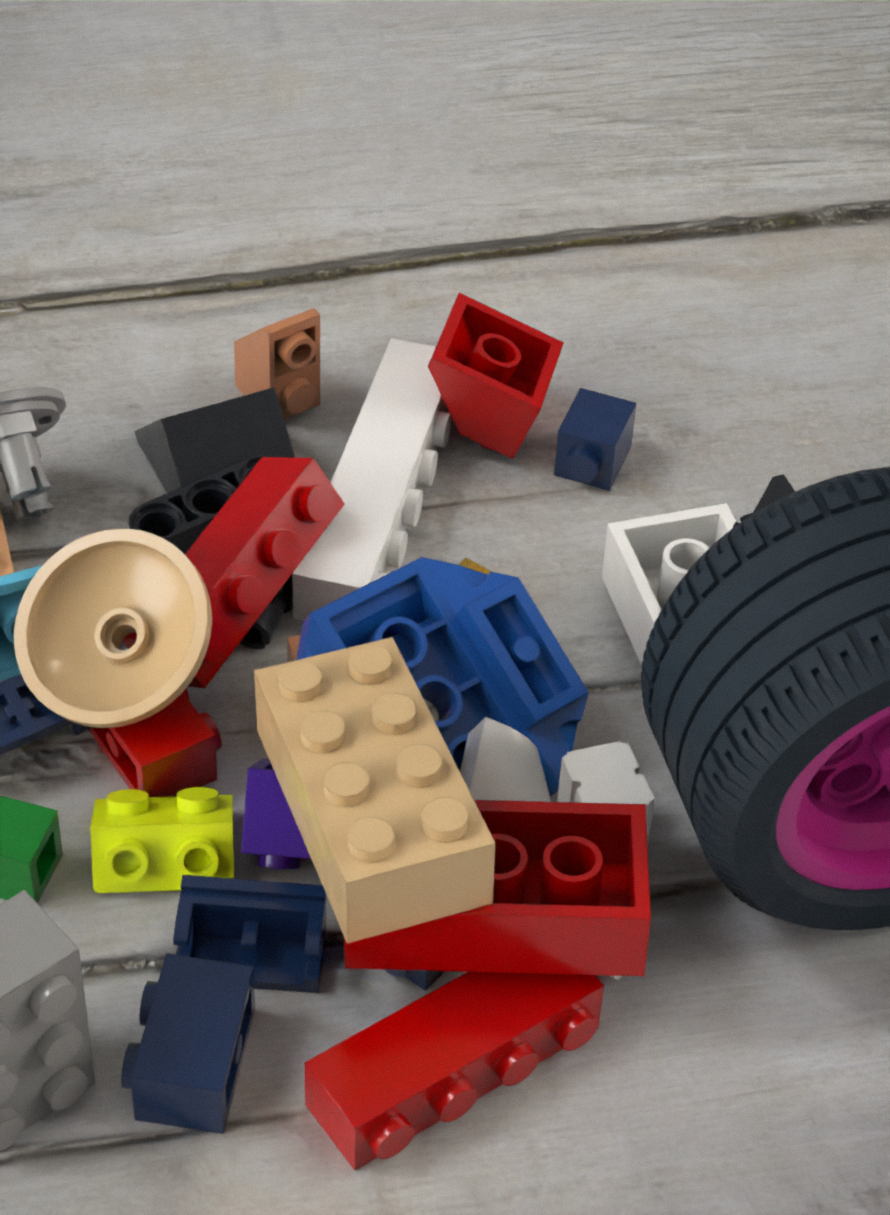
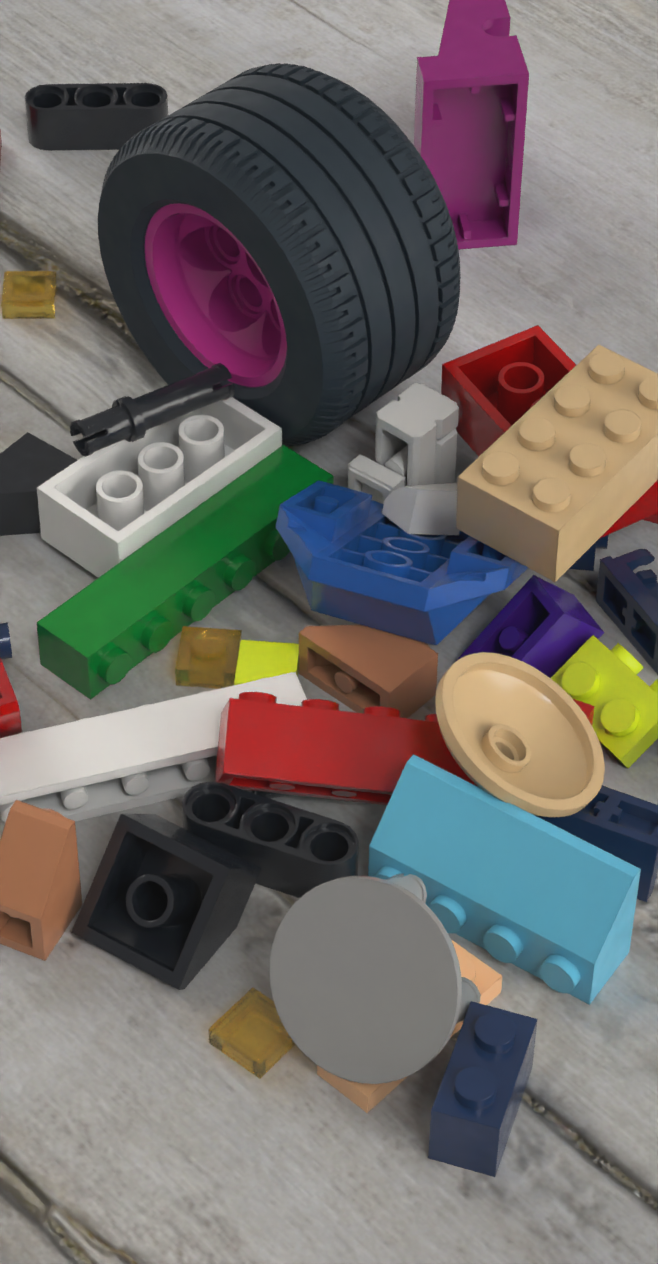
camera: 120 degrees left, 0 degrees up
(62, 448) = (252, 1033): none -> clear yellow tile
(582, 599) = (174, 577): none -> green brick

